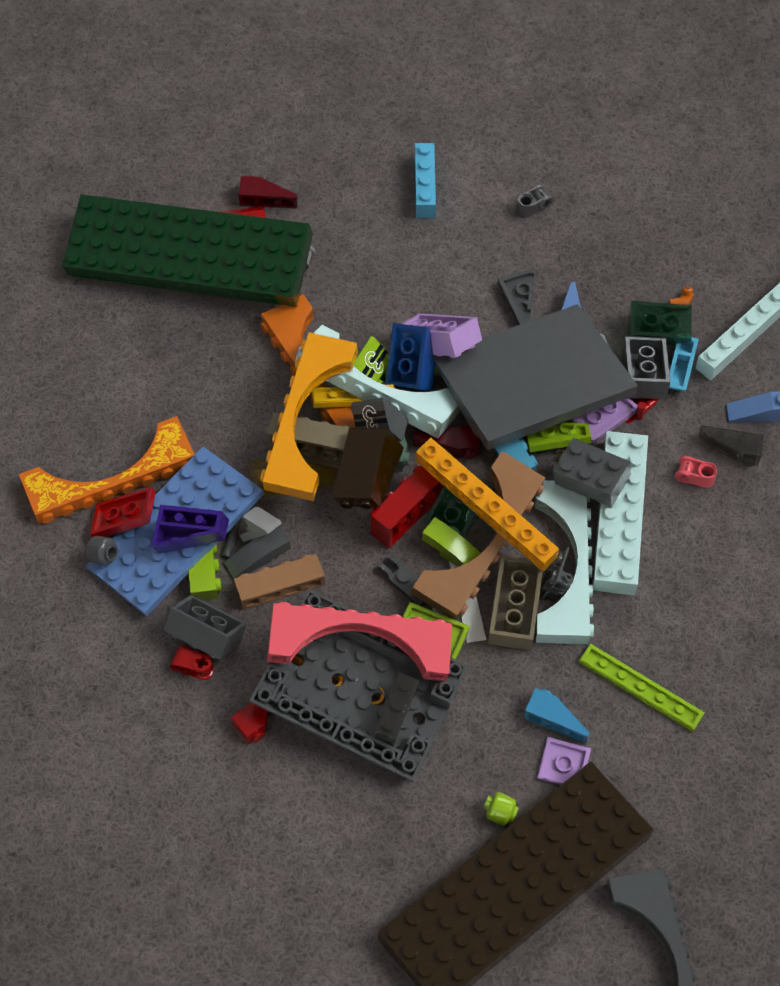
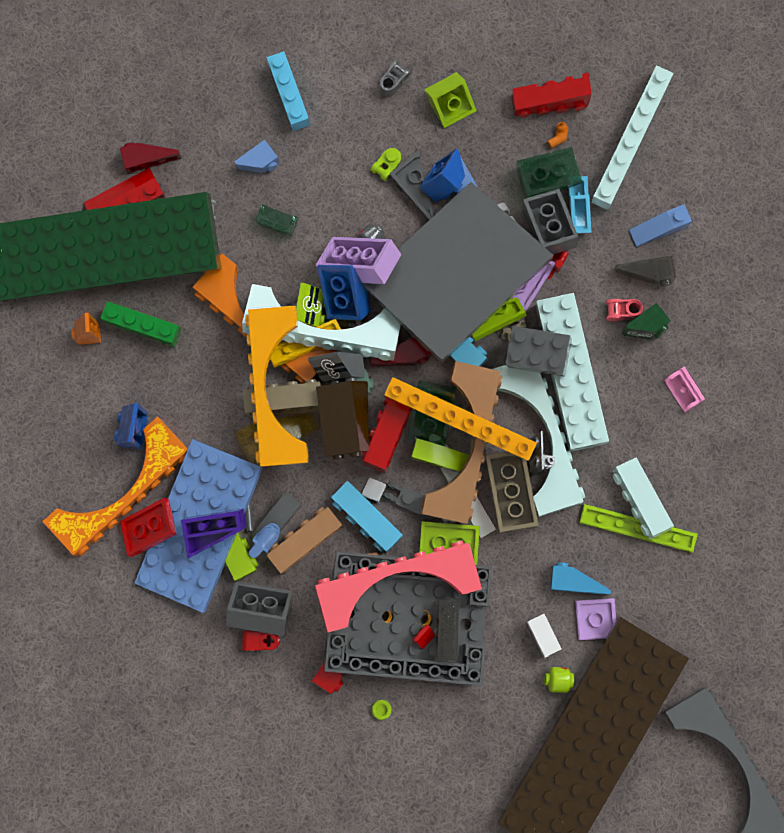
camera: 10 degrees left, 20 degrees up
(101, 550) = (144, 570): dark grey head -> none
(140, 319) = (86, 330): none -> orange slope
(143, 424) = (131, 426): none -> blue slope
(196, 332) = (141, 324): none -> green brick
(237, 563) = (264, 539): none -> medium blue arm
(258, 524) = (269, 498): light grey slope -> none
(294, 777) = (381, 709): none -> lime tile
(352, 577) = (370, 520): none -> medium azure brick
(368, 287) = (276, 220): none -> clear green hinge
(368, 708) = (423, 637): none -> red slope
(371, 228) = (258, 159): none -> medium blue slope
(371, 559) = (374, 490): none -> white slope
(499, 760) = (543, 635): none -> white panel
(502, 267) = (391, 159): none -> lime plate
(551, 295) = (444, 177): none -> blue slope
(583, 235) = (450, 99): none -> lime slope
(655, 655) = (643, 498): none -> light aqua brick
(687, 260) = (552, 96): none -> red wedge
(715, 489) = (648, 324): none -> dark green slope
(736, 566) = (684, 389): none -> bright pink hinge

